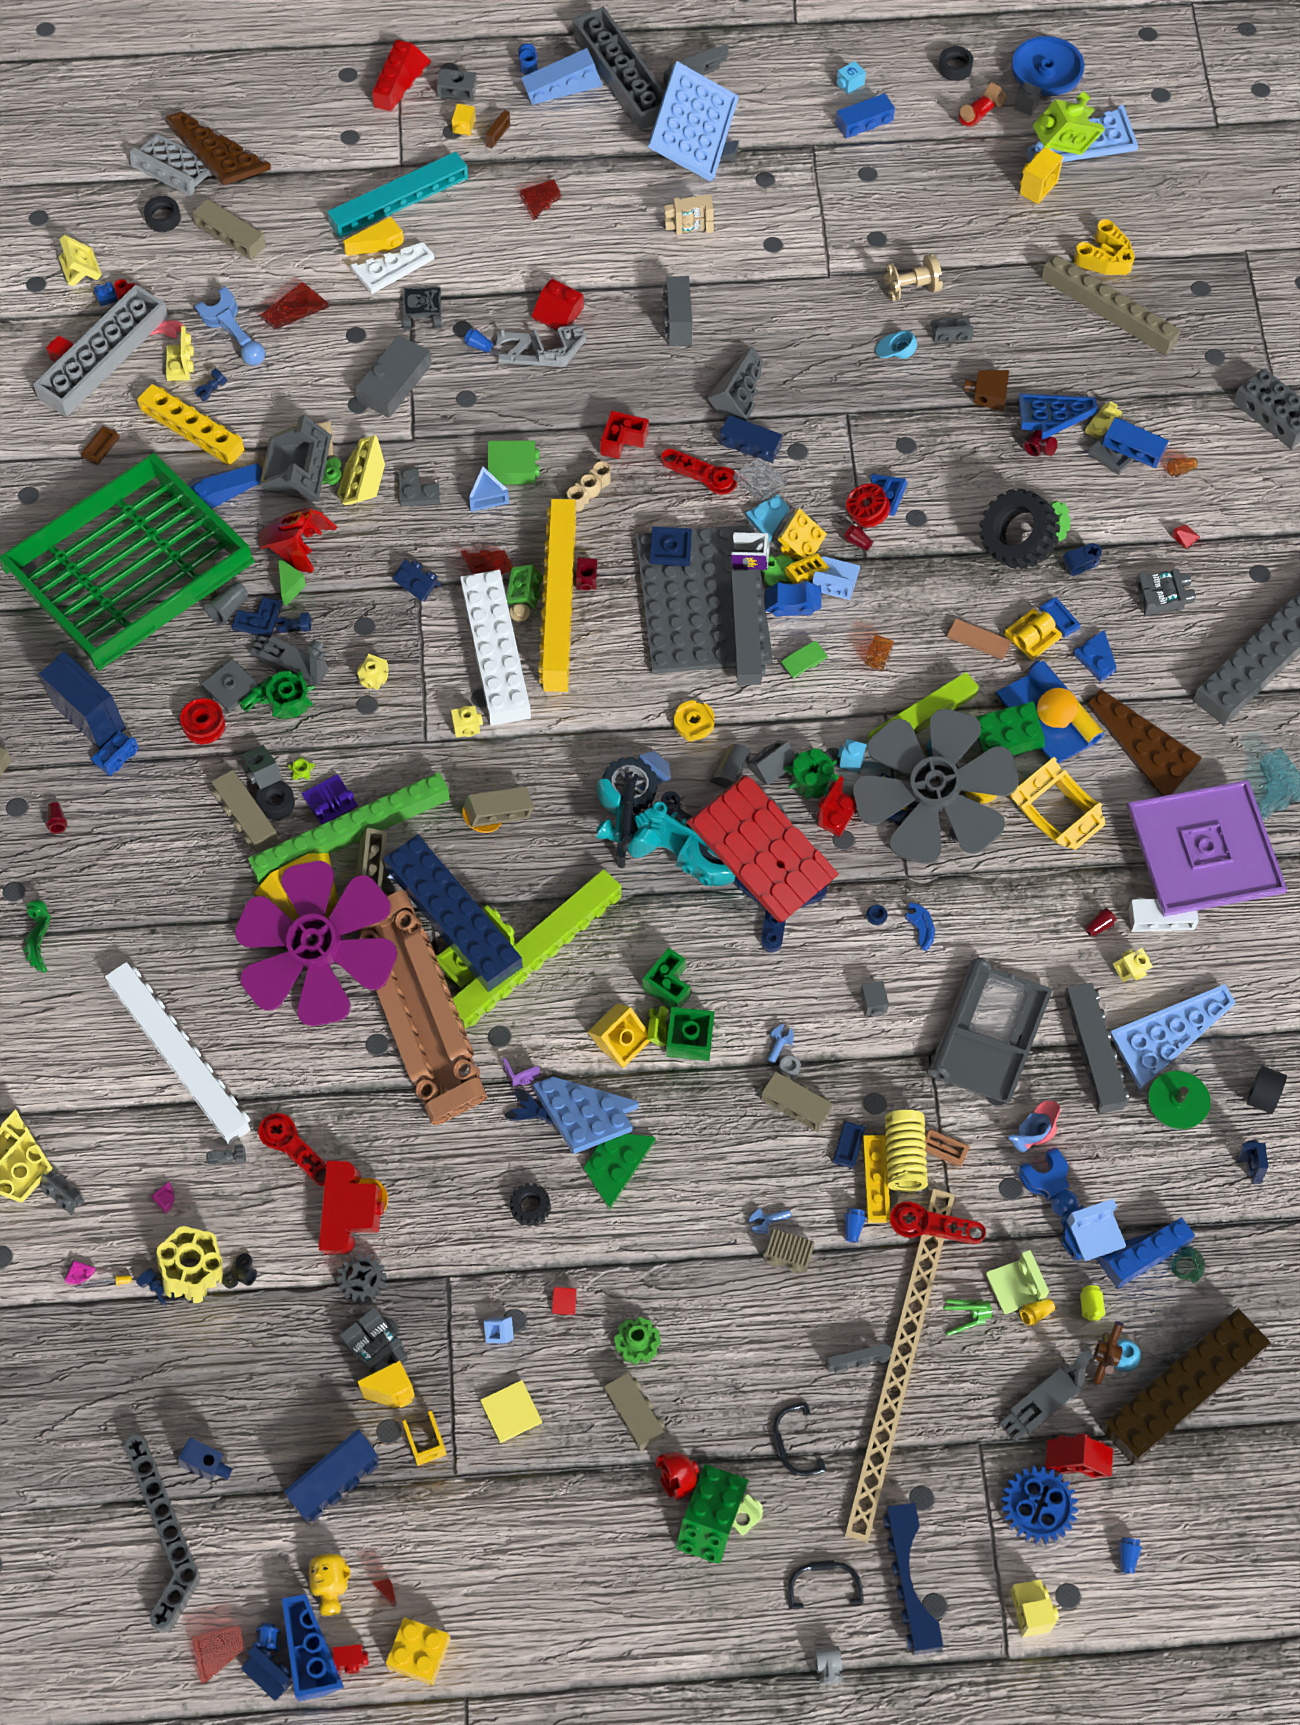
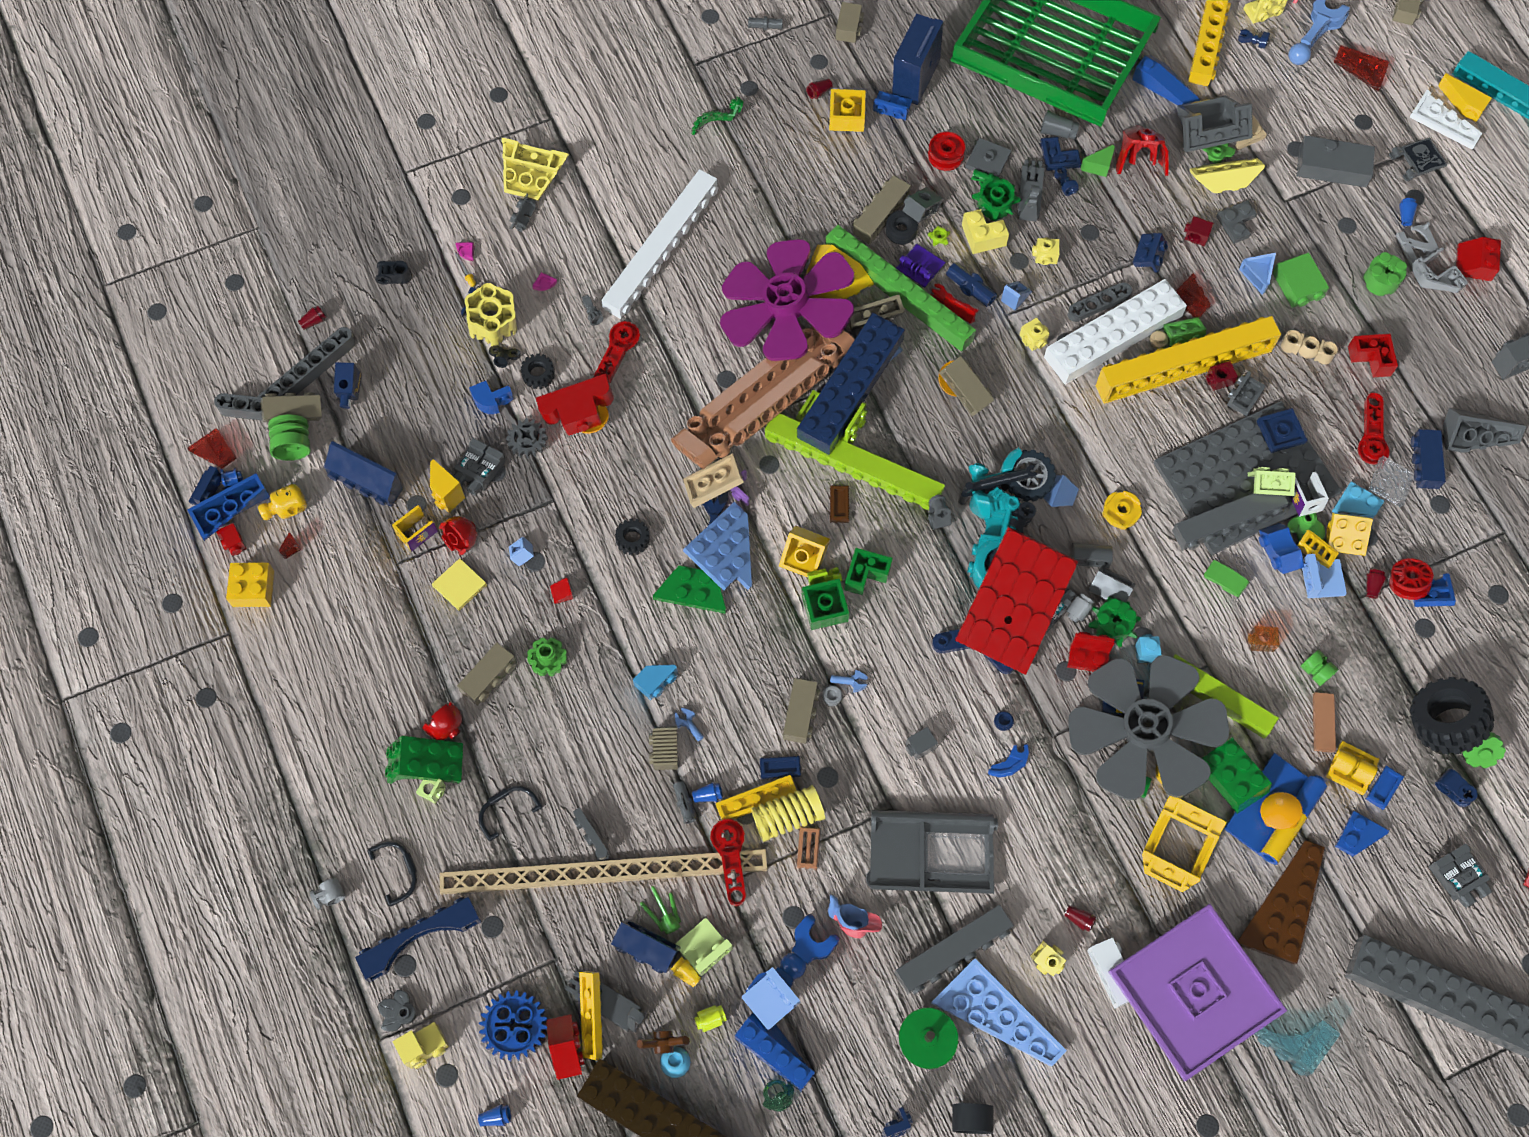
camera: 70 degrees right, 5 degrees up
(71, 1367) = (390, 272): none -> black piece
(89, 1480) = (312, 317): none -> dark red cone
(103, 798) = (847, 110): none -> yellow brick
(208, 1535) = (306, 406): none -> dark tan brick
(247, 1548) = (289, 437): none -> bright green wheel
(280, 1227) = (537, 361): none -> black tyre
(291, 1309) = (489, 401): none -> blue brick
(320, 727) = (982, 235): none -> light yellow brick
(377, 758) = (971, 284): none -> dark blue piece
(406, 777) = (961, 309): none -> red arm
(409, 722) = (1015, 294): none -> medium blue slope
(414, 527) = (1198, 230): none -> dark red brick
(449, 649) = (1100, 303): none -> dark grey beam
(452, 1389) = (459, 534): none -> red cylinder
(505, 1094) = (713, 480): none -> tan plate
(540, 389) = (1385, 274): none -> bright green brick
(576, 982) = (839, 504): none -> reddish brown tile
(615, 561) = (1246, 394): none -> dark grey bracket
(632, 887) = (939, 513): none -> dark grey piece
(707, 1237) = (654, 679): none -> dark azure slope
(728, 572) = (1273, 482): none -> yellowish green bracket
(787, 798) = (1080, 608): none -> light grey brick
(855, 1252) = (688, 815): none -> dark grey pin
(930, 617) = (1319, 668): none -> bright green wheel
(981, 1630) = (393, 1011): none -> dark grey plate
(999, 1340) = (645, 946): none -> dark blue brick
(1054, 1416) = (591, 1015): none -> yellow plate

